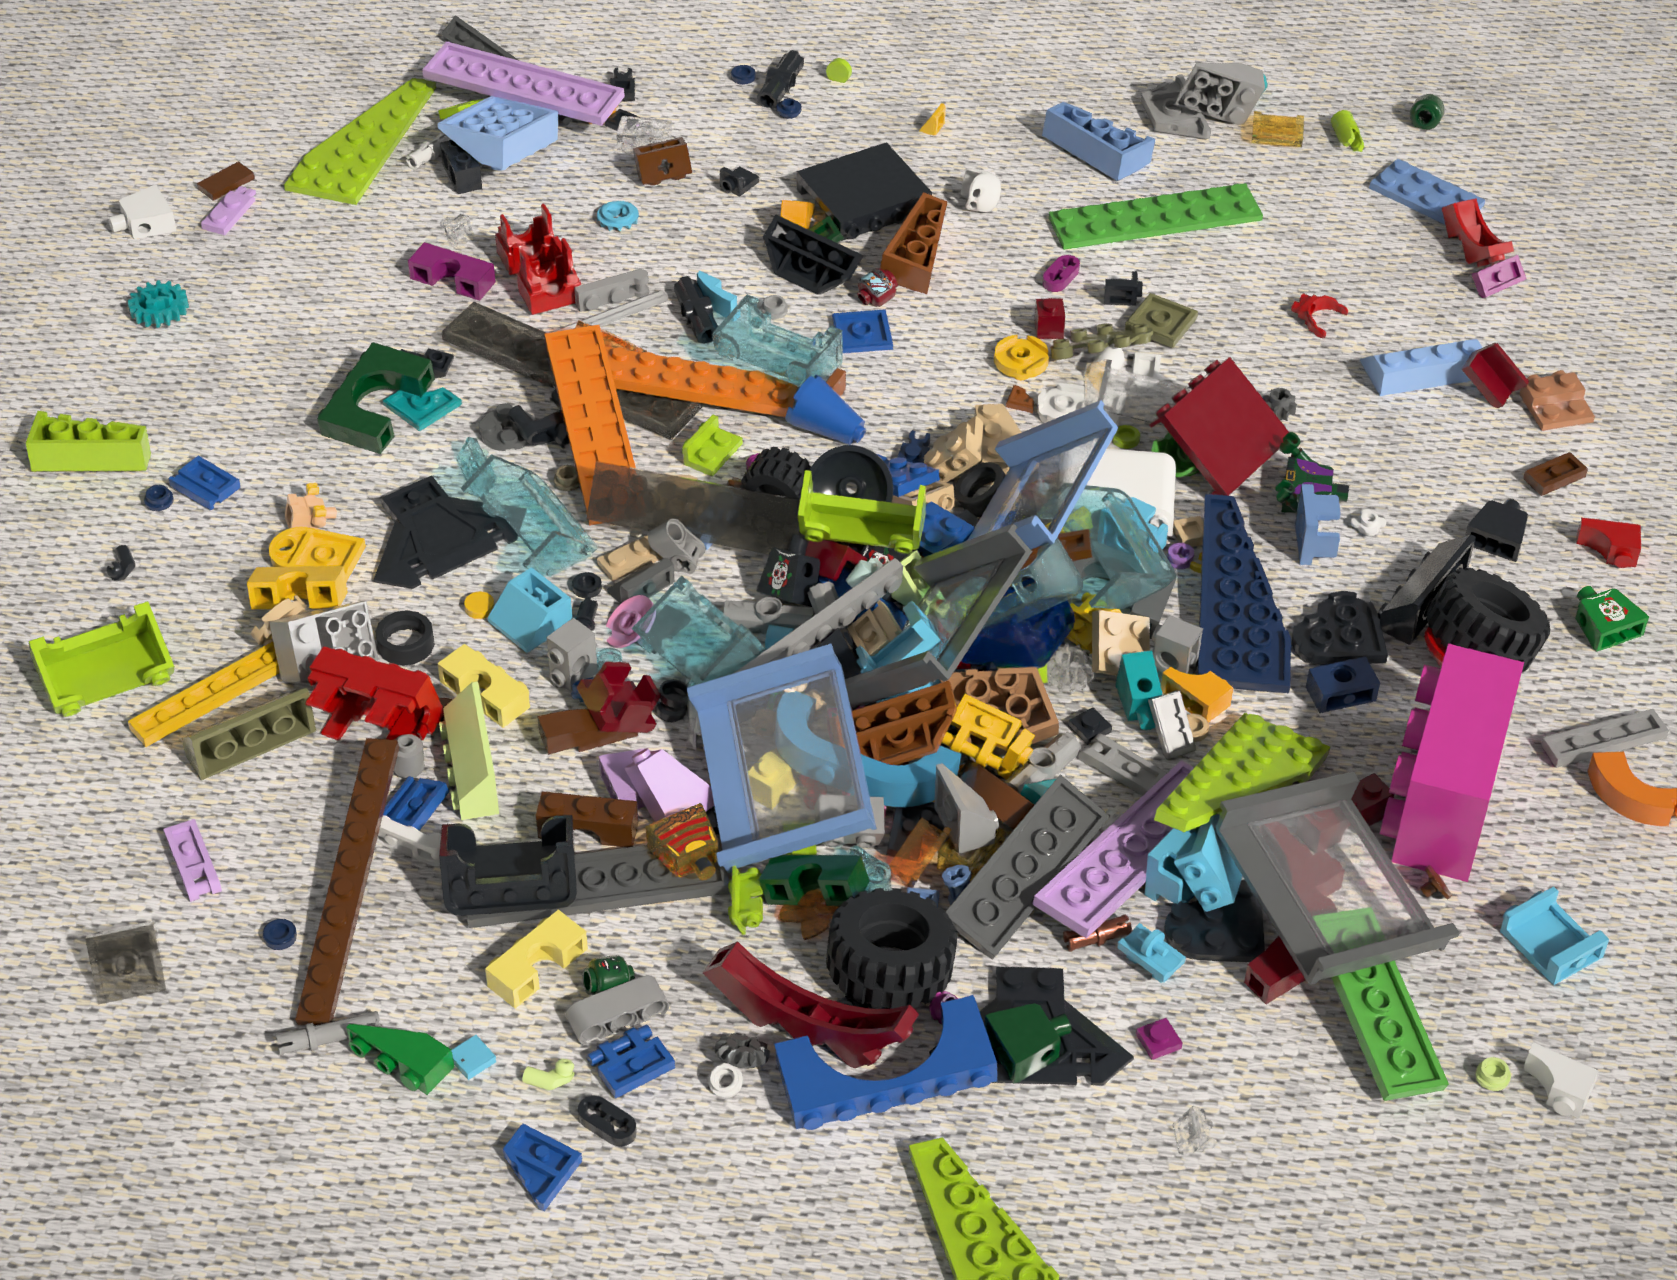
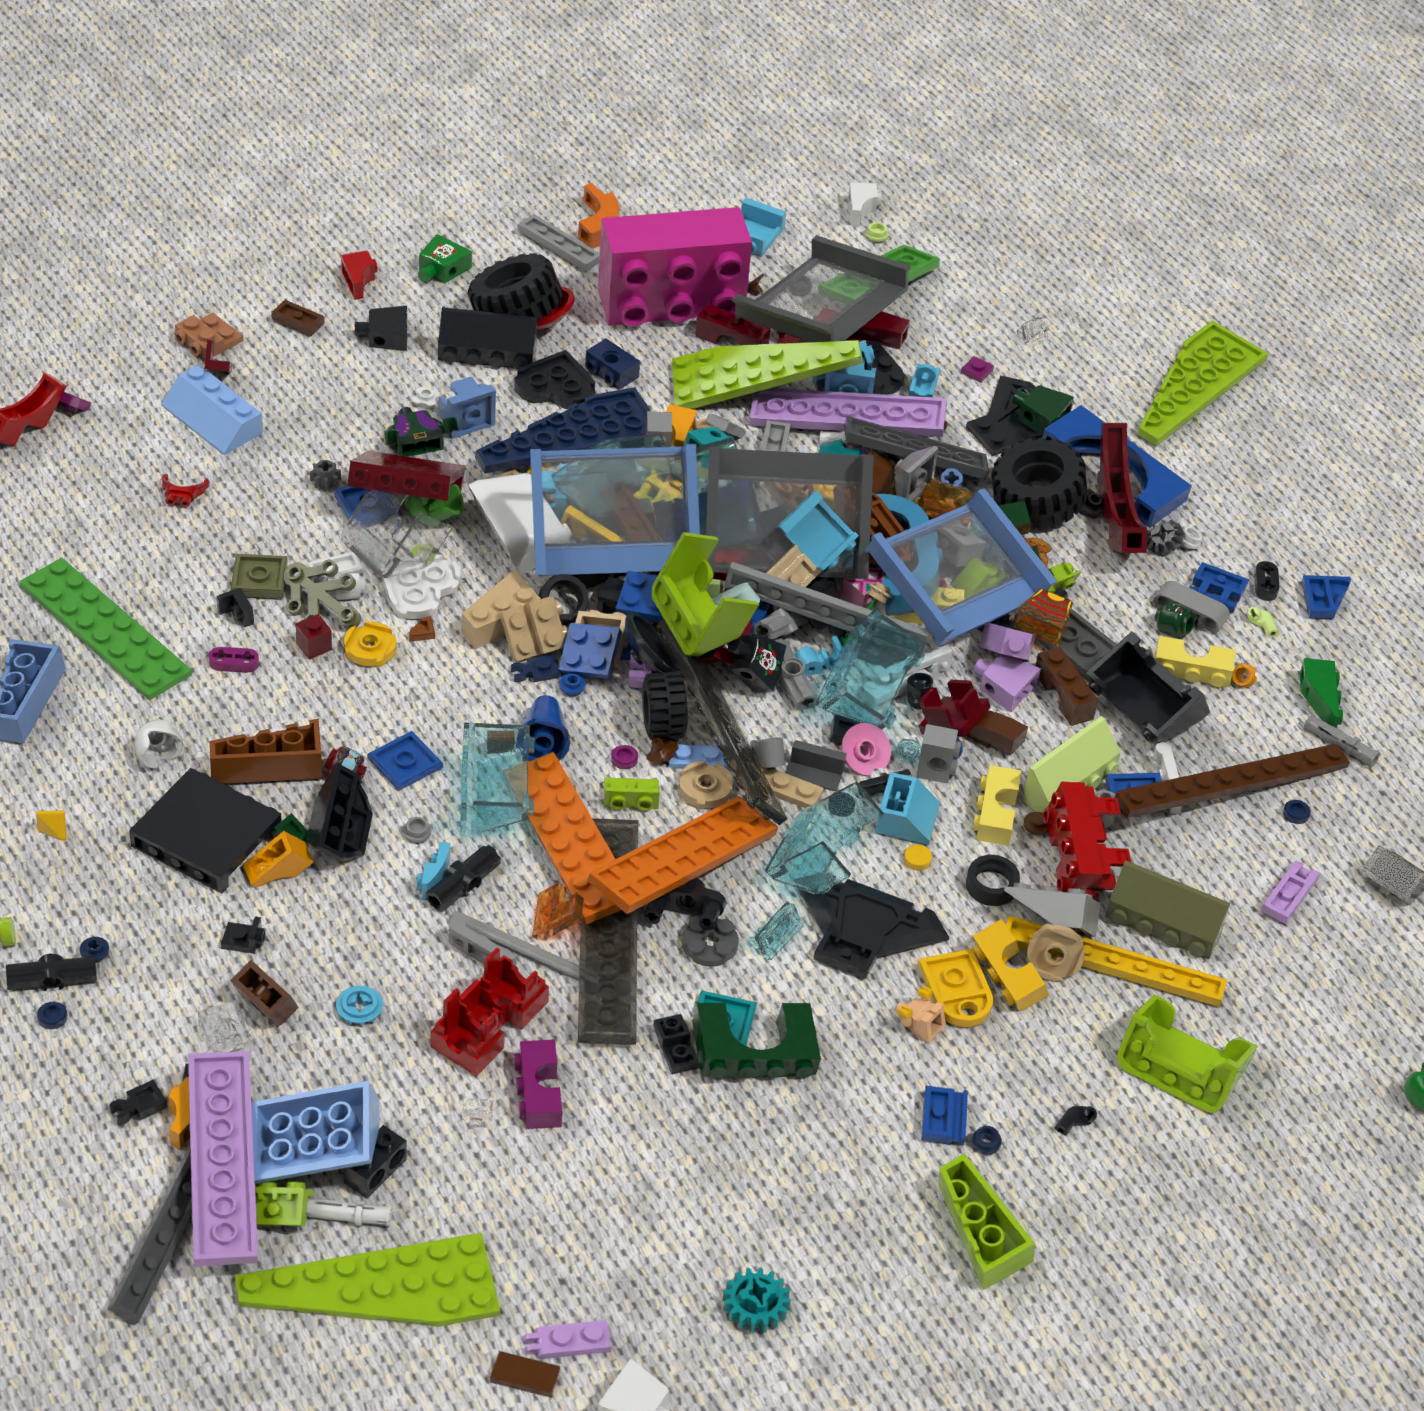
camera: 125 degrees left, 0 degrees up
(472, 1057) = (1286, 665): medium azure tile -> none
(484, 998) = (1239, 670): none -> light orange plate
(566, 478) = (741, 863): dark tan plate -> none

